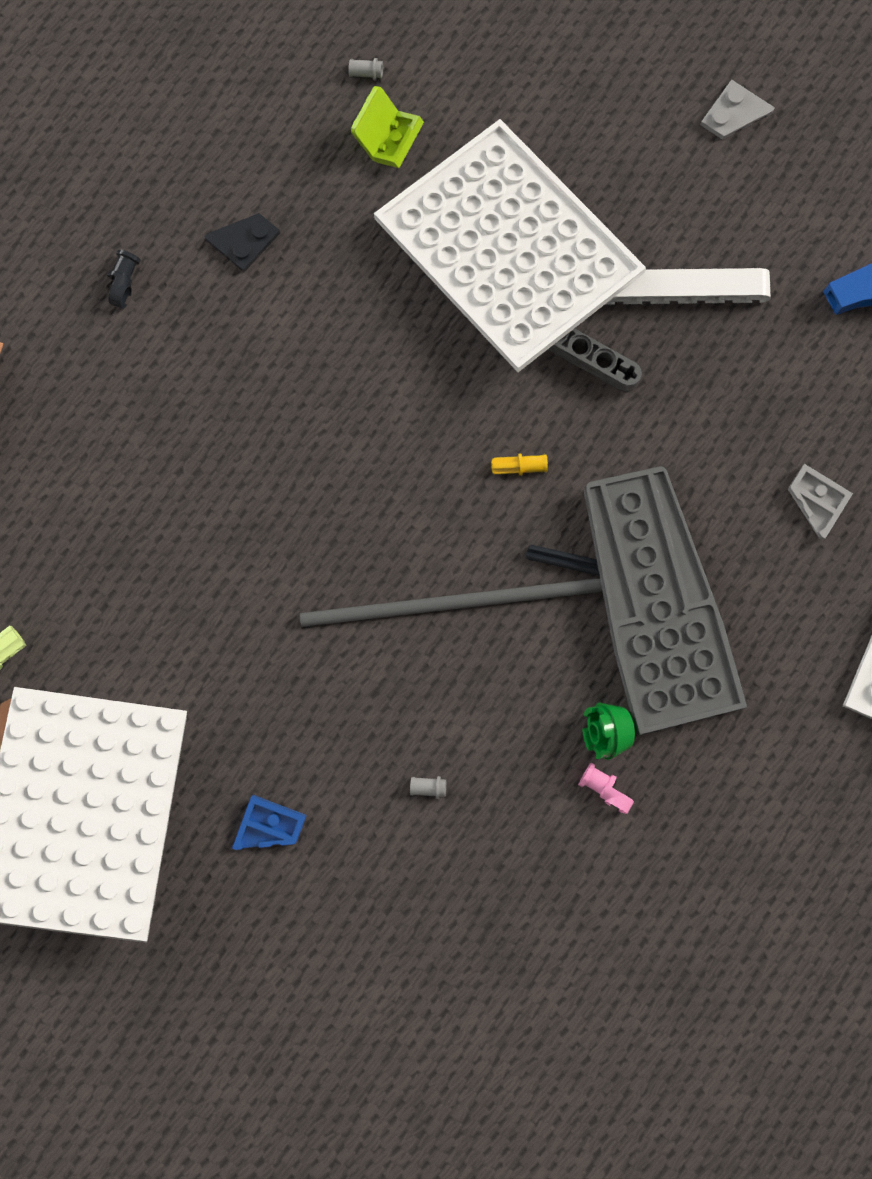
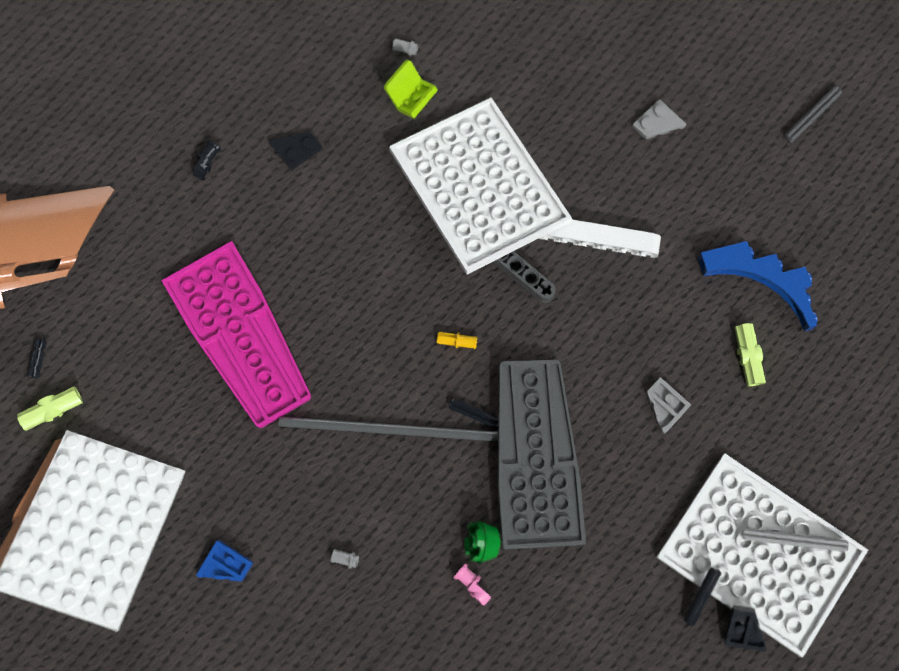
camera: 10 degrees right, 5 degrees down
(219, 510) = (239, 333): none -> dark pink wing

